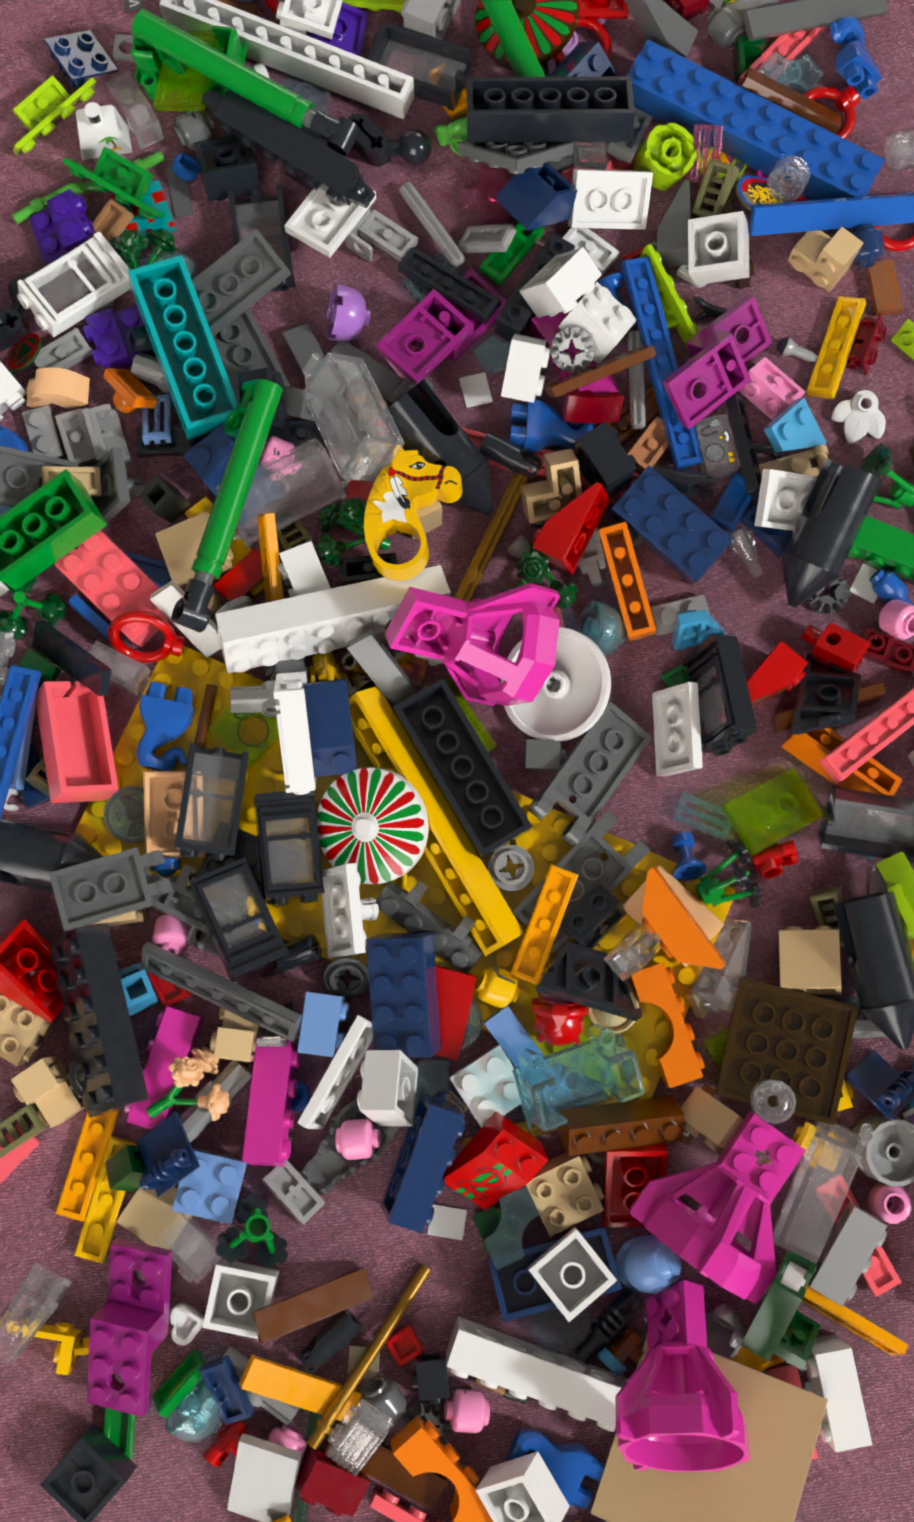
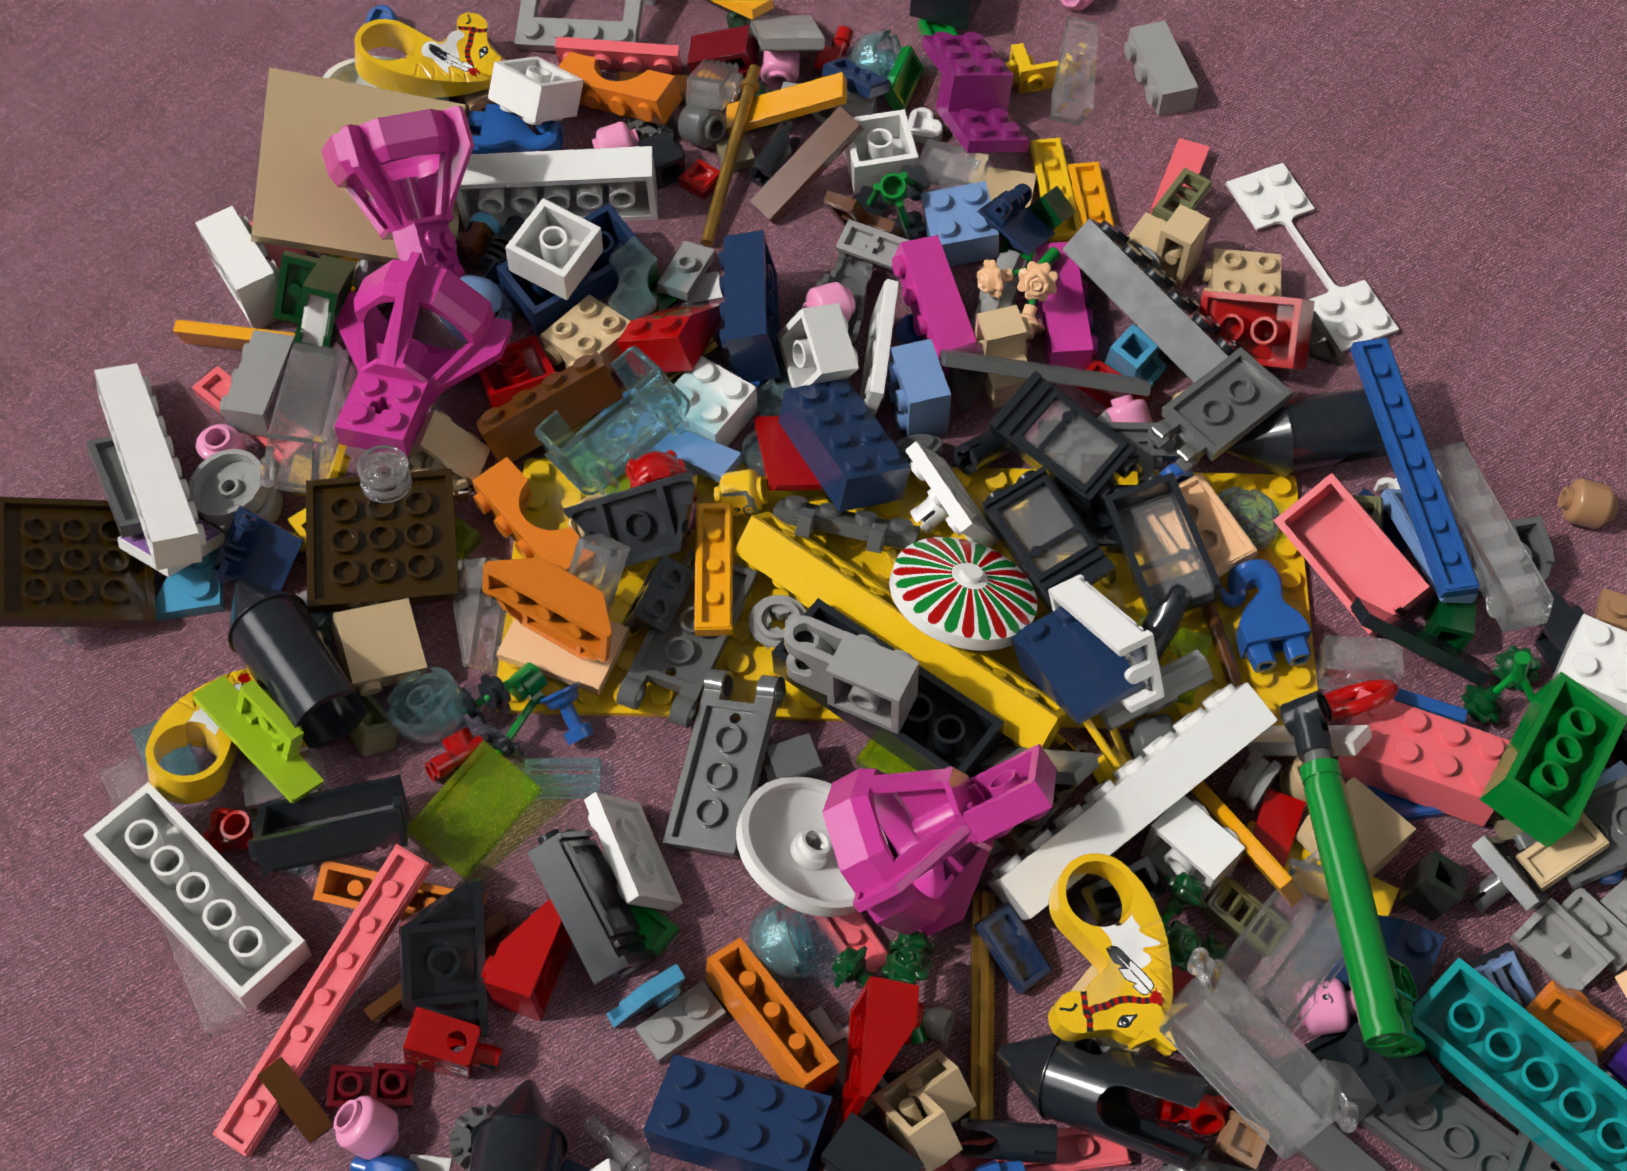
camera: 165 degrees right, 20 degrees down
(248, 735) = (1166, 617): none -> black piece
(295, 1230) = (849, 208): none -> reddish brown tile
(453, 569) = (1013, 948): none -> dark blue plate
(456, 1241) = (686, 270): none -> light grey plate
(487, 768) = (853, 672): none -> light grey brick
(788, 898) = (426, 706): none -> clear light blue cylinder

